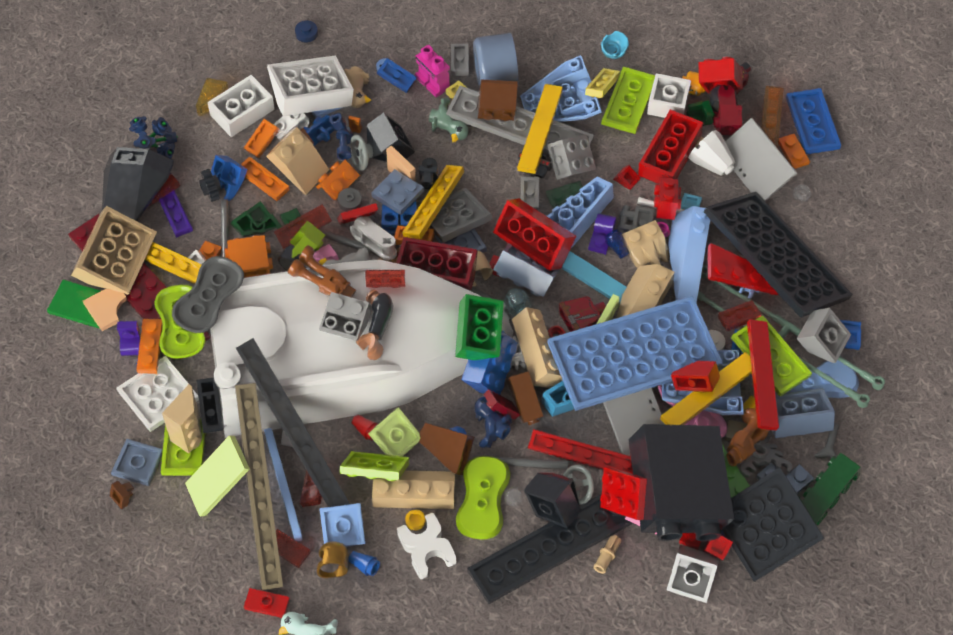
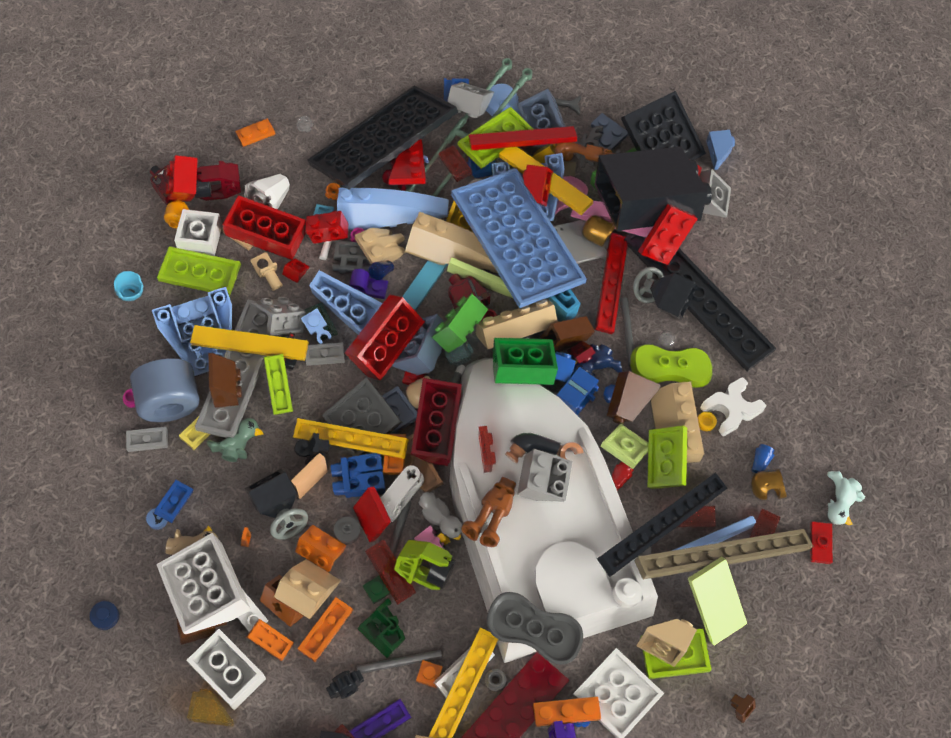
camera: 100 degrees left, 5 degrees up
(137, 462) = (700, 701): sand blue tile -> none
(174, 340) = (520, 685): lime plate -> none
(209, 405) = (630, 629): black slope -> none
(229, 174) = (322, 668): blue slope -> none
(250, 255) = (437, 624): orange brick -> none
(320, 129) = (248, 572): blue hips -> none
(343, 524) = (731, 482): light blue tile -> none
(344, 135) = (262, 544): dark blue bar -> none
(397, 191) = (342, 474): sand blue plate -> none
(432, 71) = (169, 455): dark pink hips -> none
(453, 392) = (579, 390): none -> blue container
(497, 151) = (278, 384): none -> lime tile
(539, 292) = (459, 323): none -> bright green wedge
(558, 182) = (315, 323): none -> light blue plate
(602, 83) = (183, 292): light yellow plate -> none
(607, 554) = (706, 260): tan axle -> none
(624, 152) = (268, 272): none -> tan bracket
(701, 111) = (216, 204): dark green panel -> none
(760, 596) = (719, 146): none -> medium blue slope
(761, 162) = (275, 153): light grey container -> none
(772, 112) = (224, 147): clear orange brick -> none
(813, 121) = (219, 116): blue plate -> none
(829, 485) = (612, 95): dark green wedge -> none

